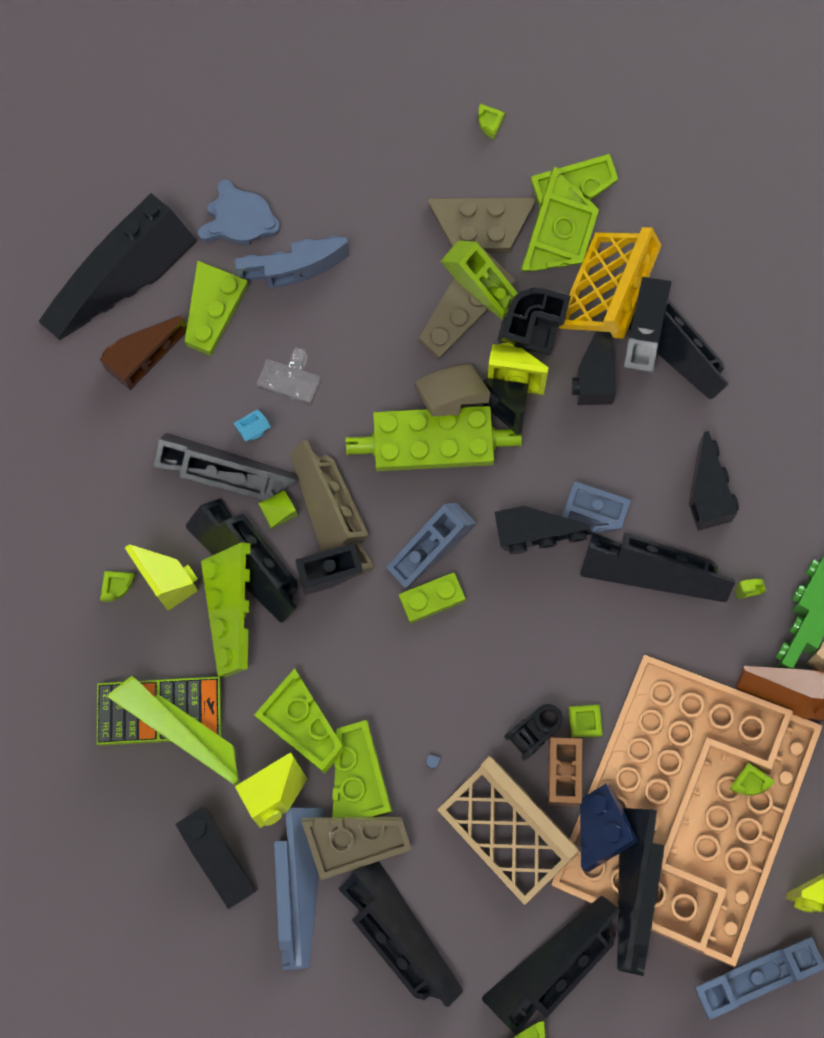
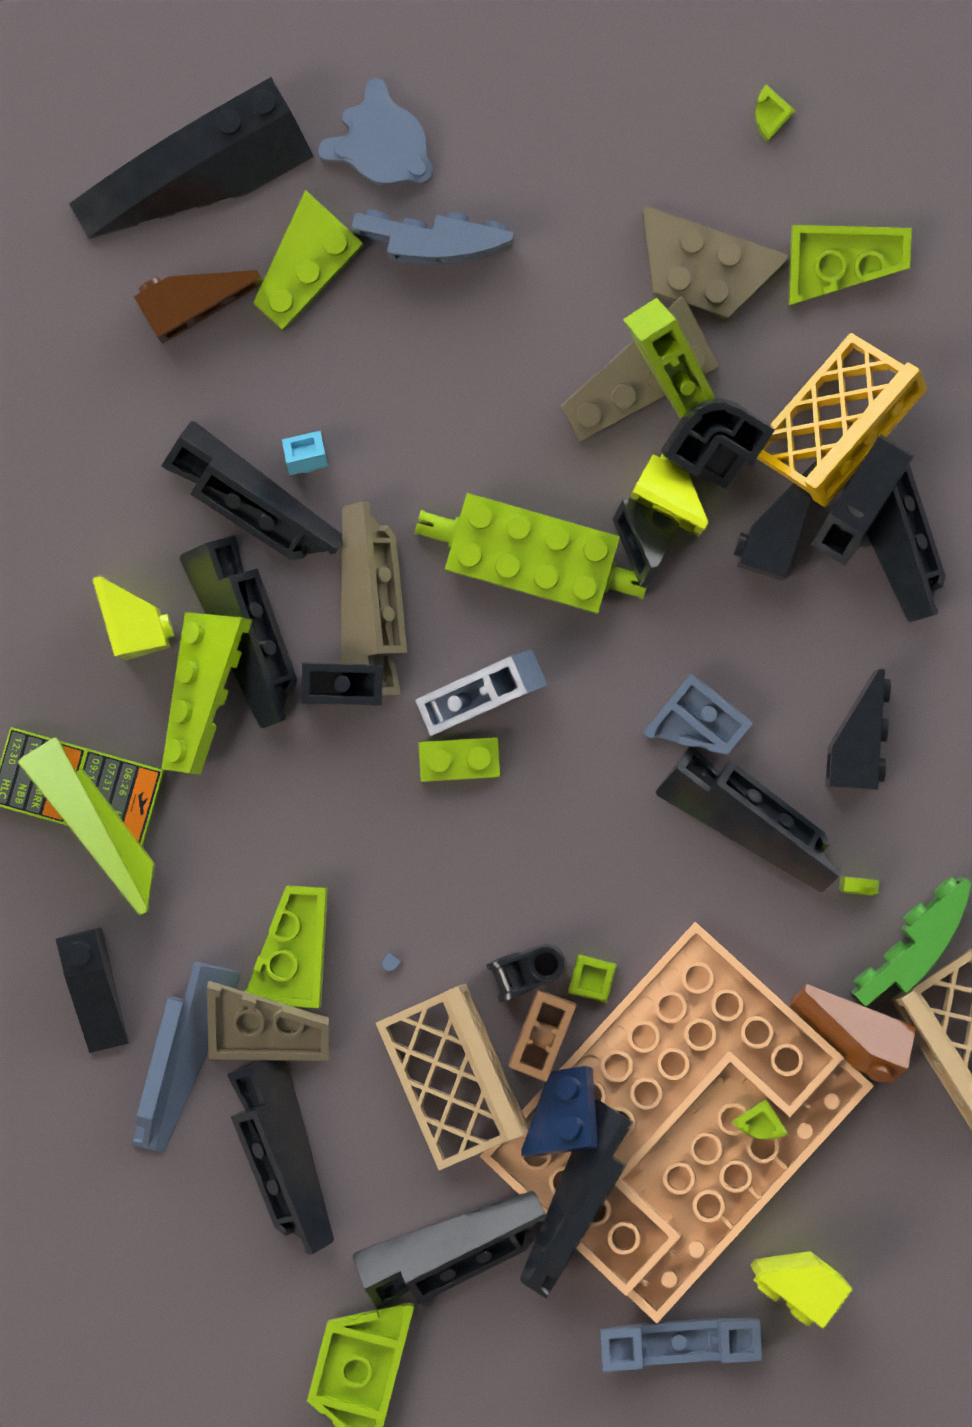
camera: 15 degrees right, 15 degrees up
(116, 585) = (69, 606): lime tile -> none
(272, 790) = (183, 942): neon yellow slope -> none
(278, 509) = (304, 576): lime slope -> none
(290, 379) = (374, 405): clear plate -> none
(300, 723) = (245, 863): lime wing -> none
(451, 387) = (577, 497): dark tan slope -> none
(530, 527) = (612, 714): black slope -> none
(560, 227) = (805, 313): lime wing -> none

